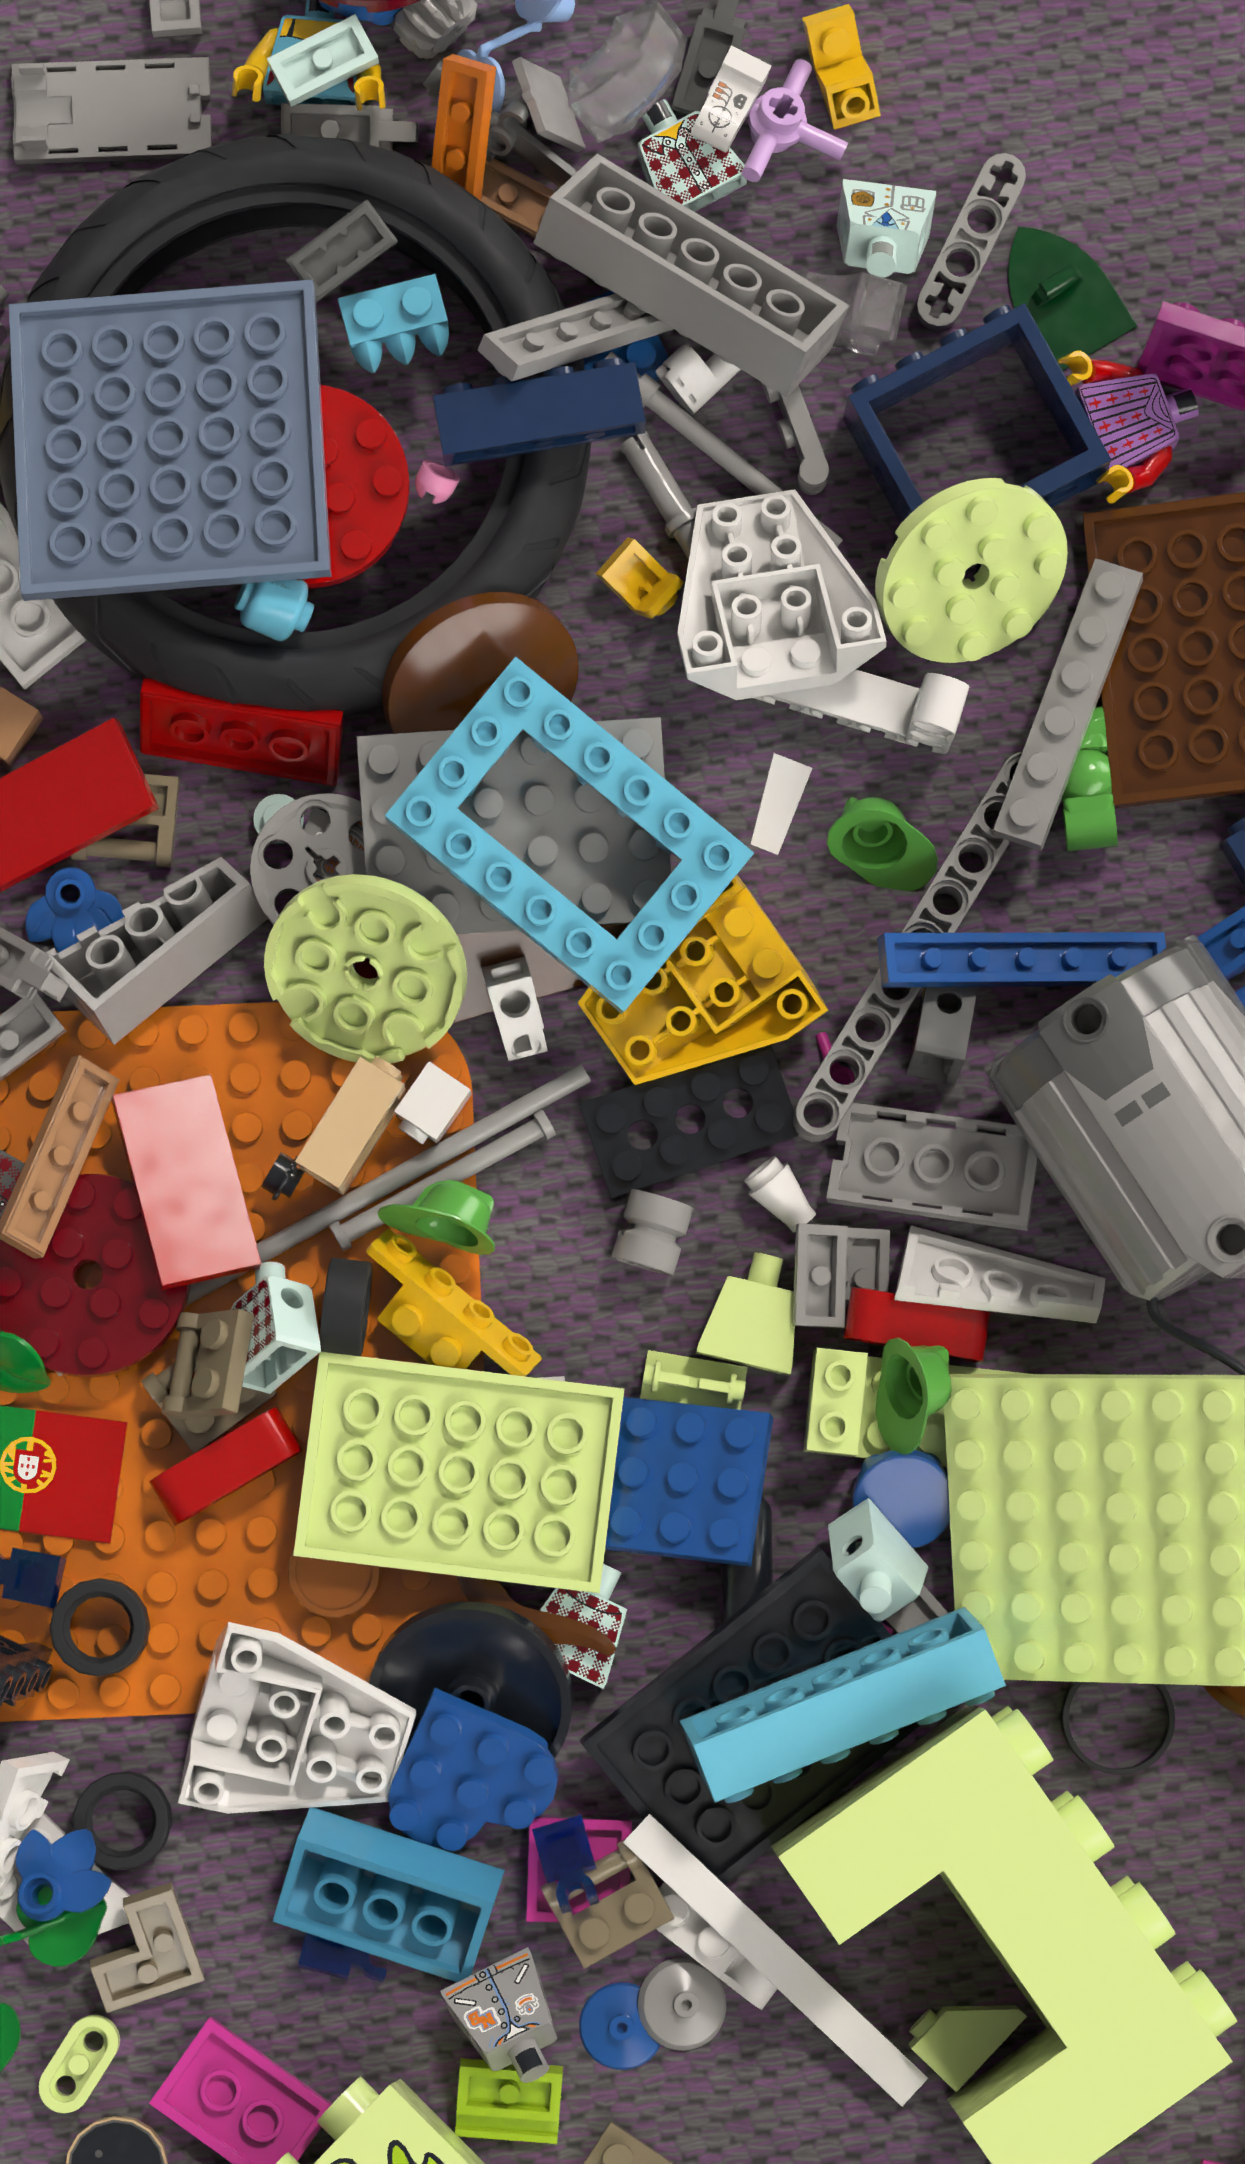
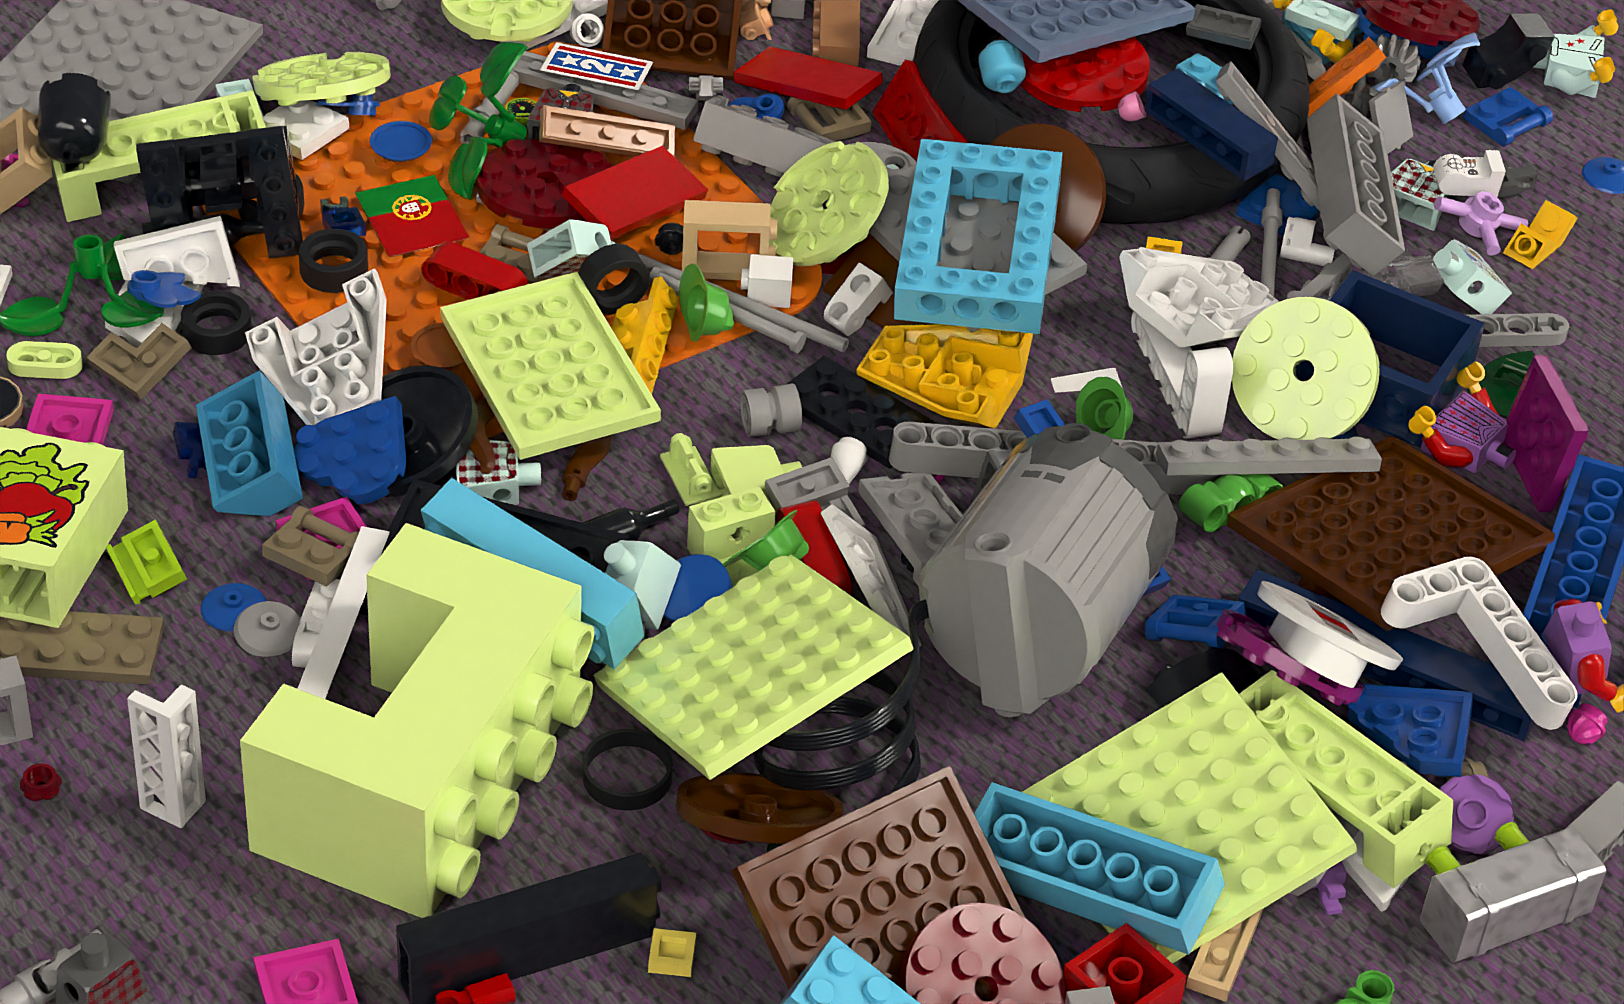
camera: 60 degrees right, 40 degrees down
(219, 1364) = (522, 227): dark tan plate -> none
(505, 2015) = (208, 525): light grey torso -> none
(565, 1857) = (330, 505): clear blue plate -> none
(627, 72) = (1430, 139): clear brick -> none
(688, 1481) = (623, 480): blue plate -> none

